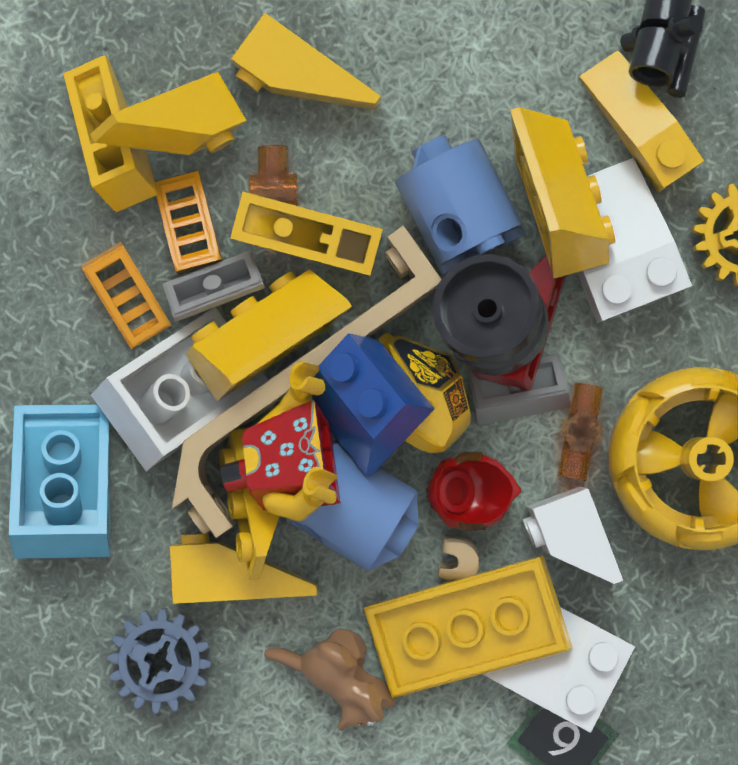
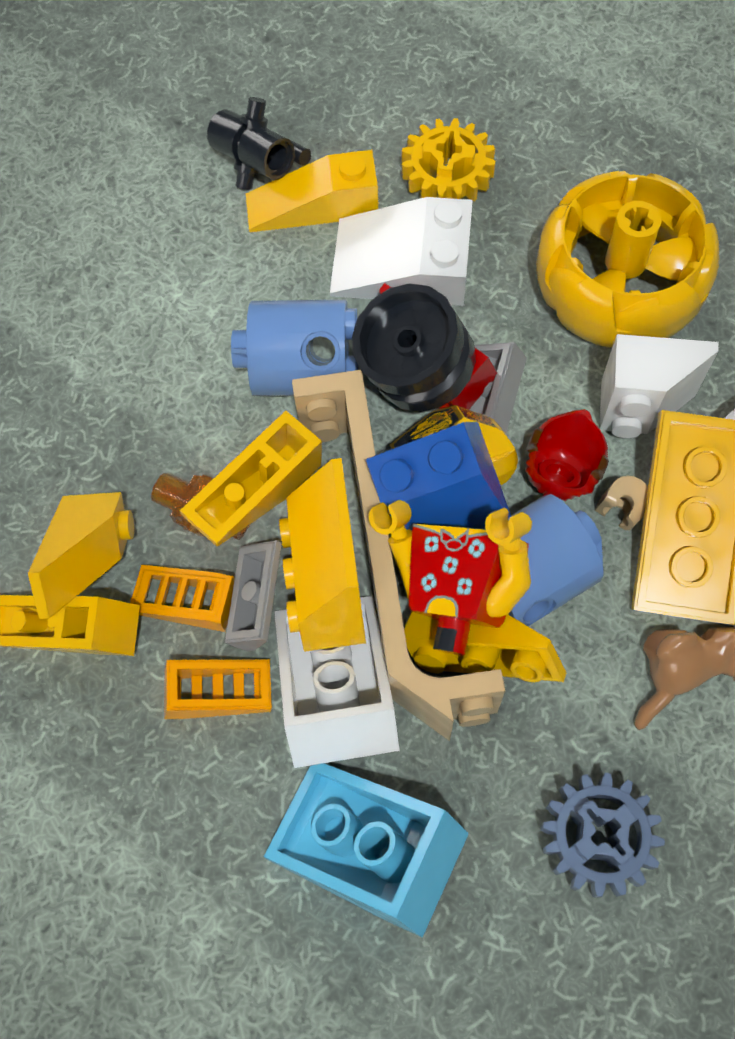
camera: 60 degrees left, 20 degrees down
(213, 573) = (540, 721): yellow slope -> none
(293, 68) = (104, 433): yellow slope -> none
(560, 192) = (336, 263): yellow slope -> none
(586, 405) = (554, 349): clear orange axle -> none

